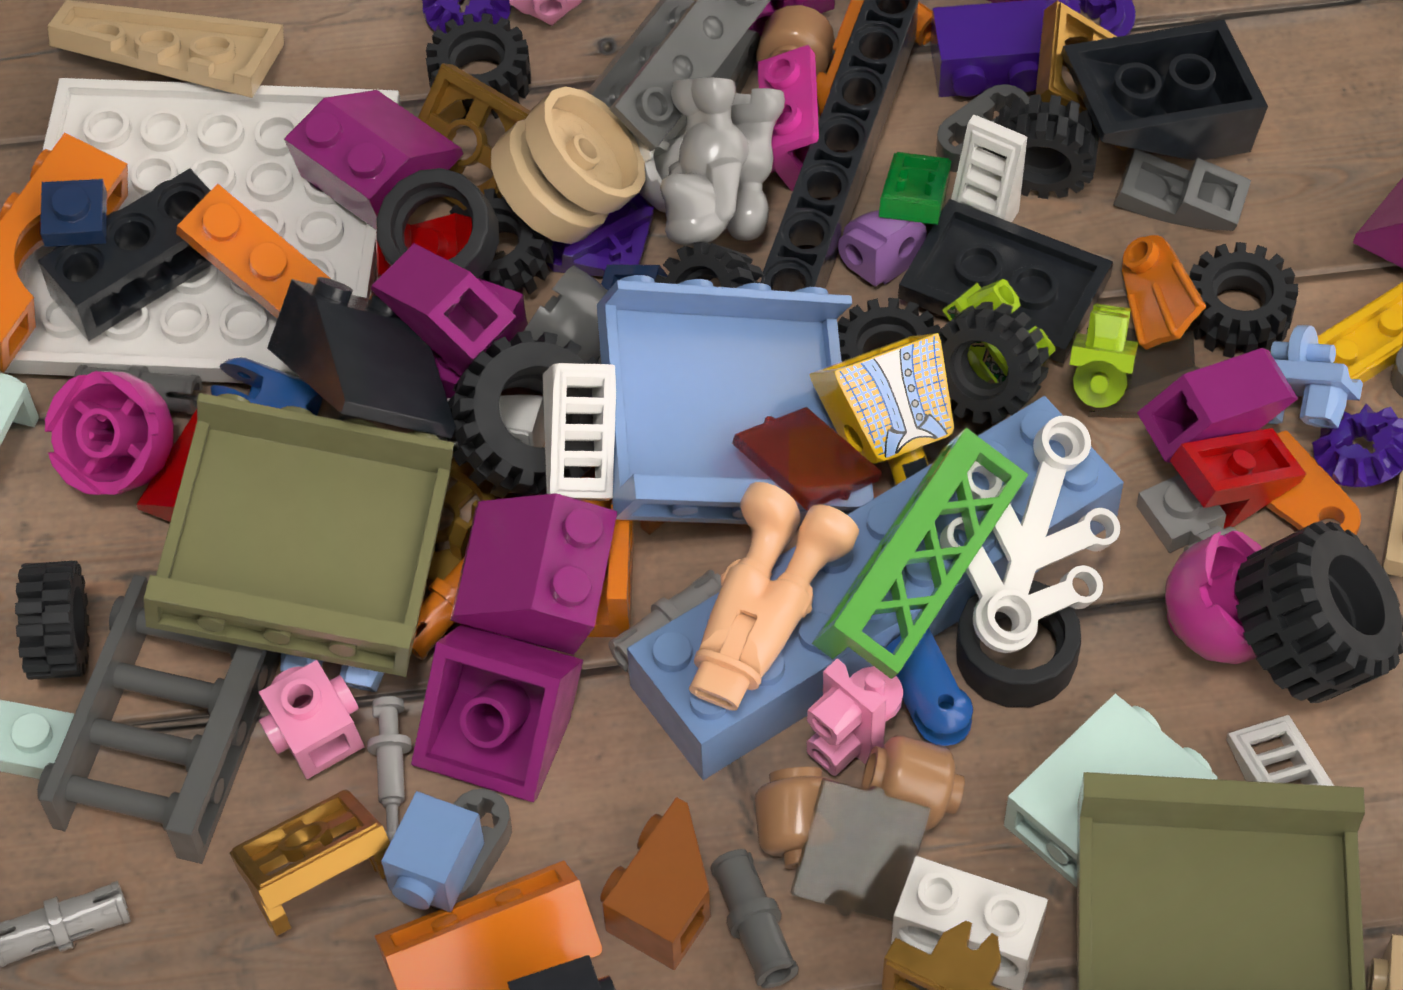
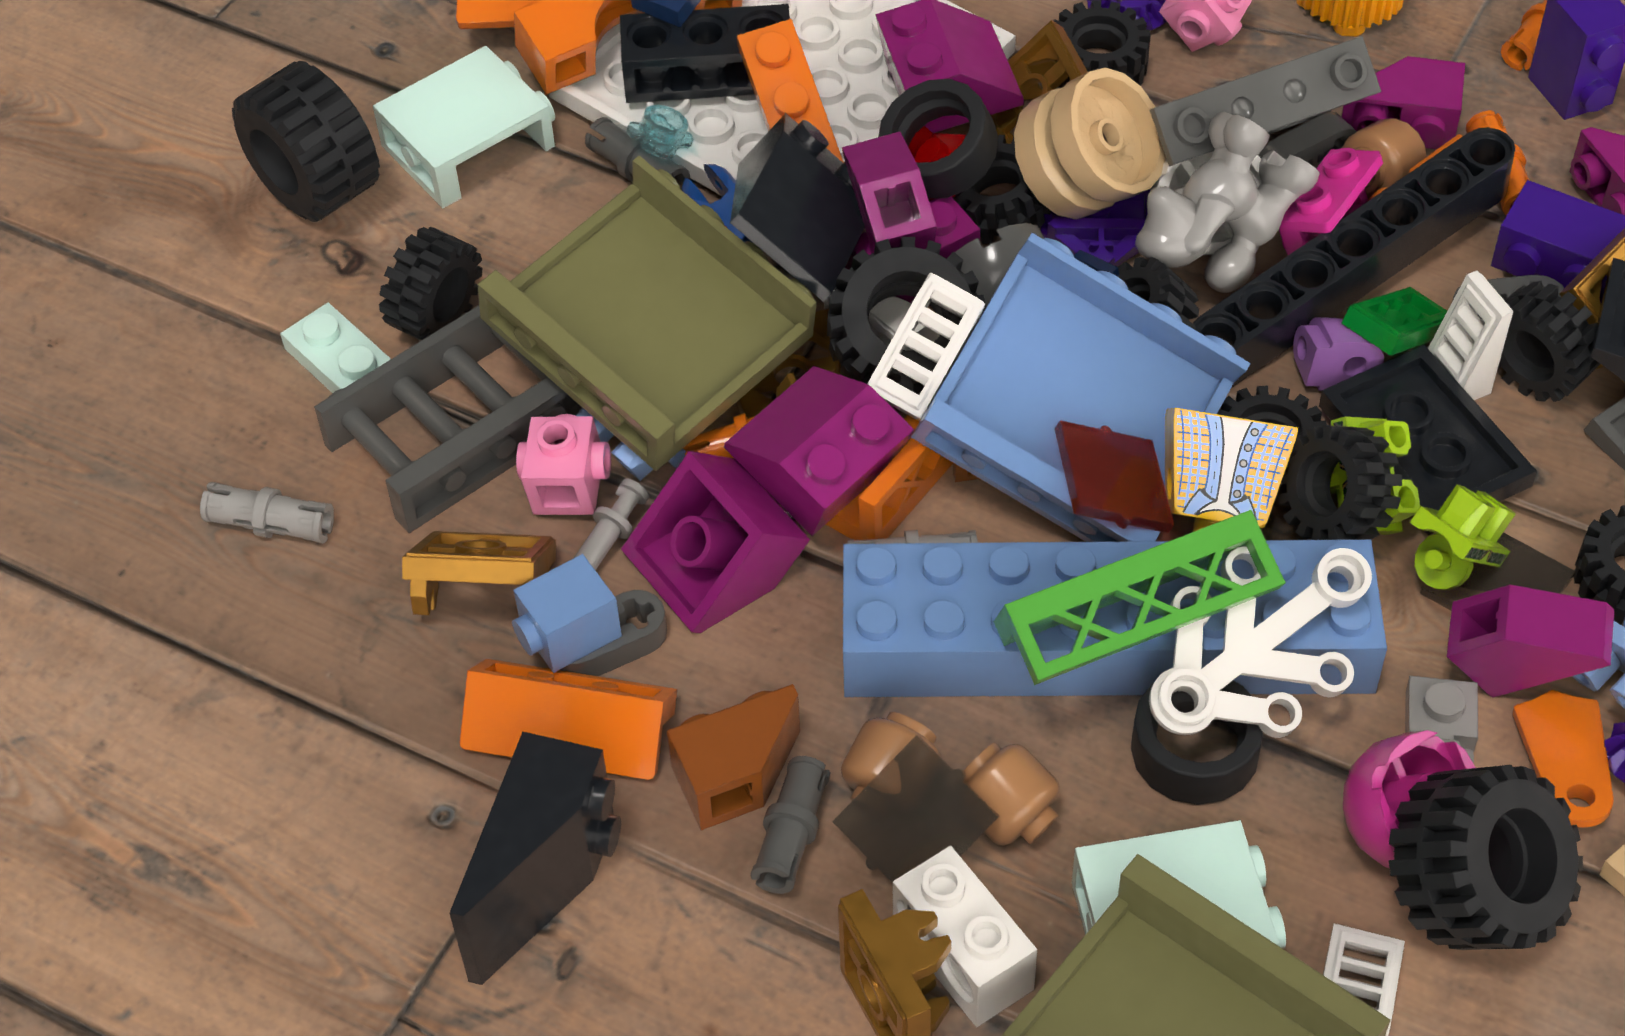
camera: 35 degrees right, 5 degrees down
(108, 432) = (579, 168): dark pink cylinder -> none
(155, 353) = (661, 131): none -> clear light blue plate
(758, 614) = (966, 559): light nougat piece -> none
(851, 715) = (989, 708): bright pink hips -> none
(932, 695) = (1085, 728): blue piece -> none
(1158, 291) = (1563, 517): orange piece -> none
(1238, 472) = (1511, 702): red slope -> none

